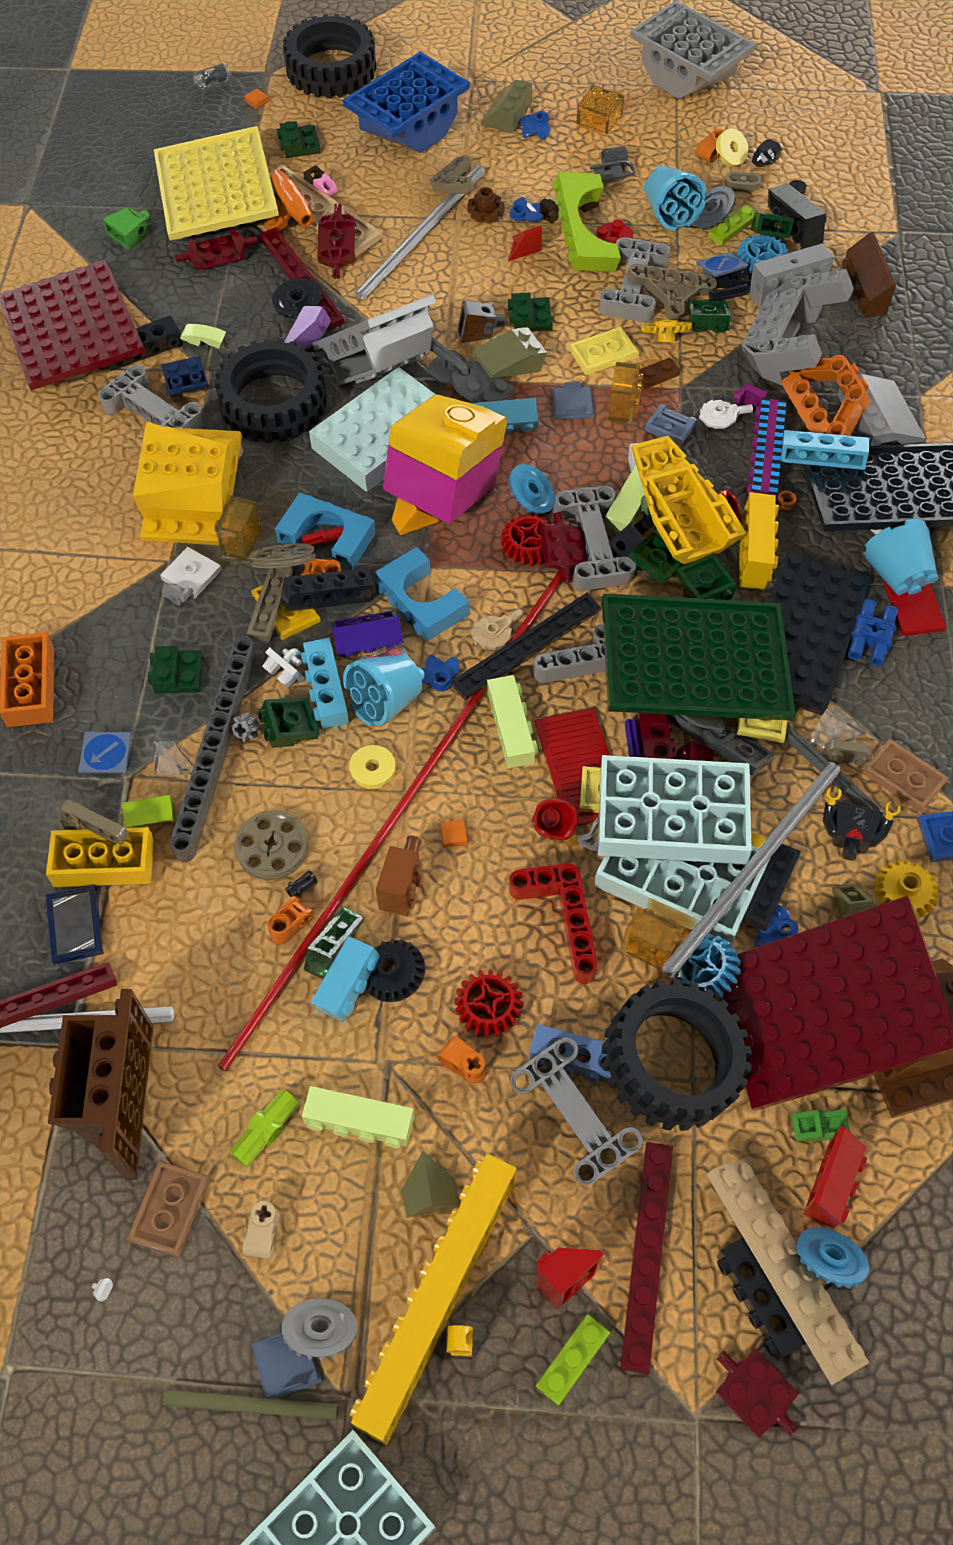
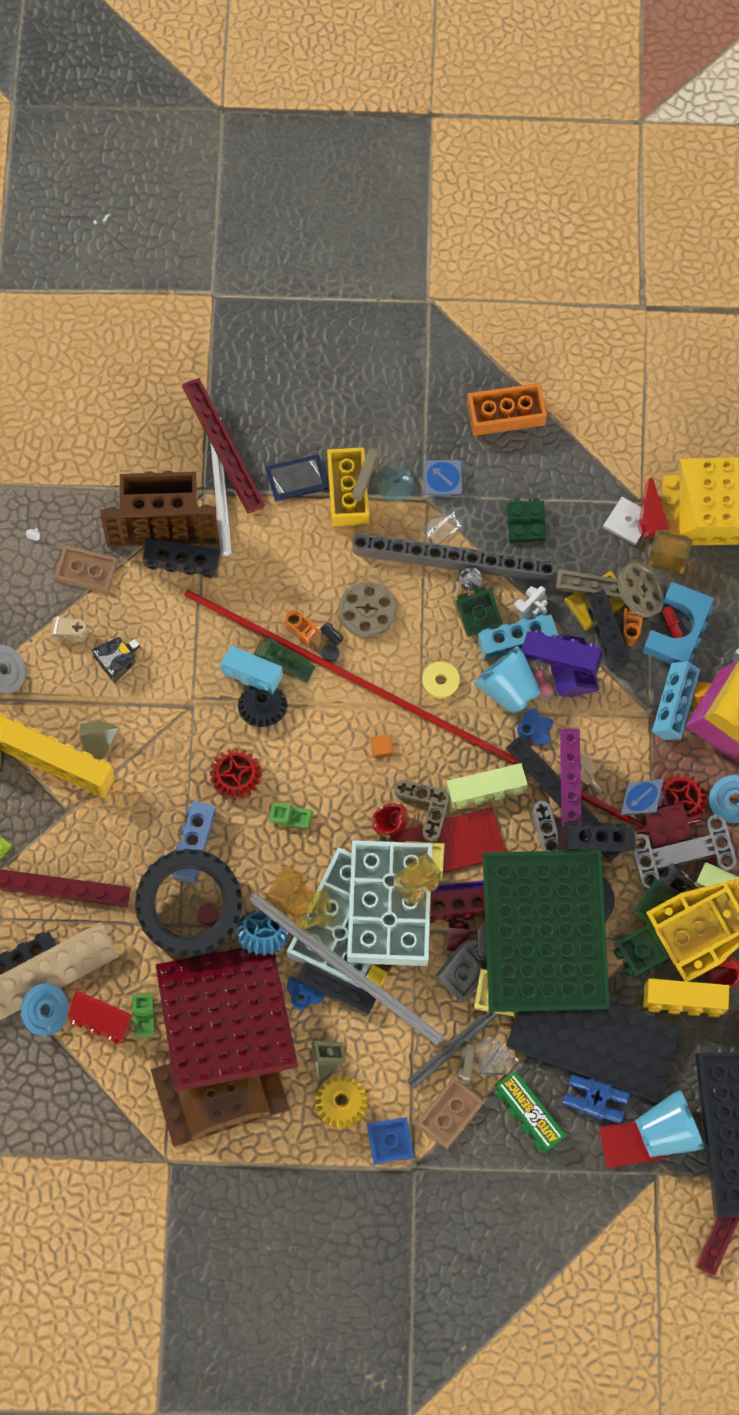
camera: 85 degrees right, 10 degrees up
(113, 804) = (392, 491): none -> clear light blue dish
(148, 811) = (389, 516): lime hinge -> none
(176, 594) = (602, 513): light grey piece -> none
(176, 1030) = (174, 551): none -> black brick
(187, 543) = (651, 512): none -> red slope
(264, 1128) = (140, 624): lime piece -> none
(312, 1161) = (116, 657): none -> black torso
(326, 888) = (330, 653): none -> black piece
(358, 1117) = (148, 686): yellowish green brick -> none
(359, 622) = (562, 653): none -> dark purple brick
(400, 878) = (334, 703): dark orange brick -> none
(427, 618) = (624, 686): dark azure arch -> none
(448, 537) = (676, 700): none -> medium azure brick
(459, 1057) = (192, 754): orange piece -> none
(520, 628) = (570, 776): none -> magenta brick
(530, 567) = (643, 797): none -> piece
(533, 777) = (434, 805): none -> dark tan beam
(545, 938) = (290, 816): none -> bright green slope
(565, 1272) = (30, 821): red slope -> none
(570, 911) = (311, 831): red beam -> none
(575, 1110) = (148, 833): light grey beam -> none
(586, 602) = (623, 837): none -> black brick
(657, 760) = (417, 879): none -> clear yellow brick
(676, 901) = (310, 903): none -> clear yellow plate
(679, 1042) = (207, 914): none -> red tile
(855, 826) = (394, 1061): black torso -> none
(896, 694) = (530, 1112): none -> brick

